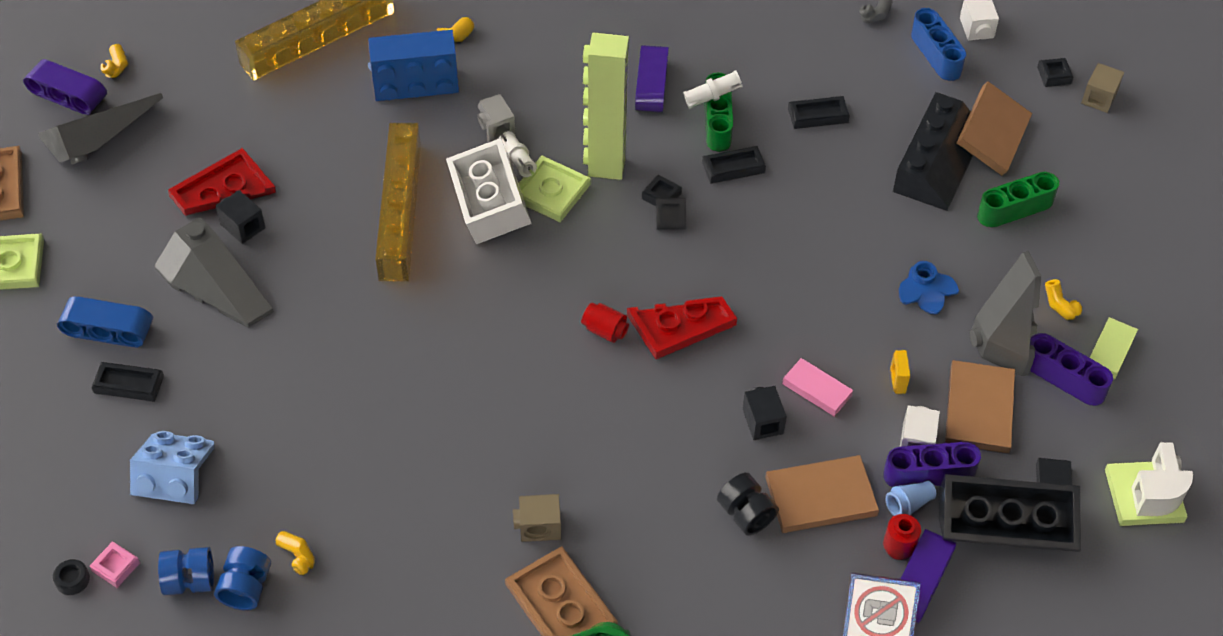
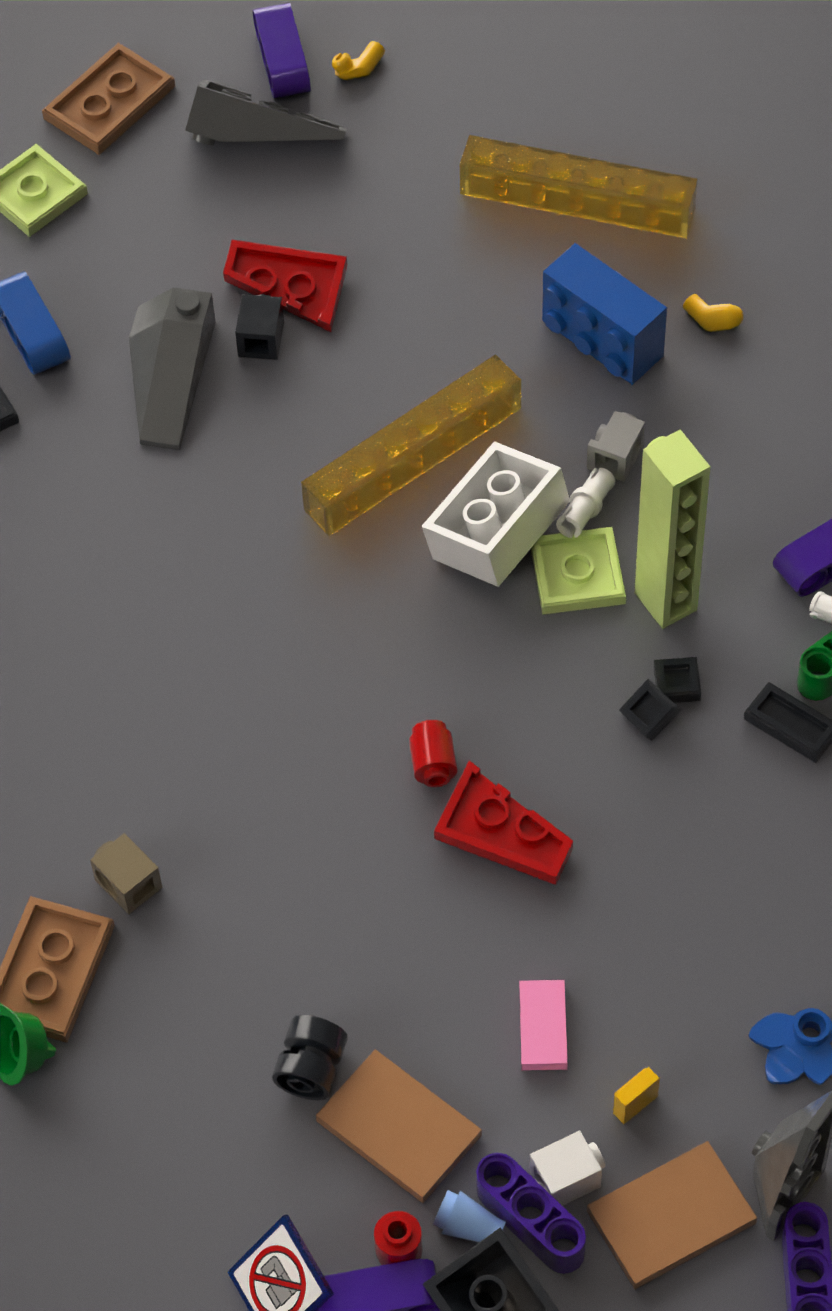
camera: 55 degrees right, 5 degrees up
(764, 412) = (451, 992): black brick -> none

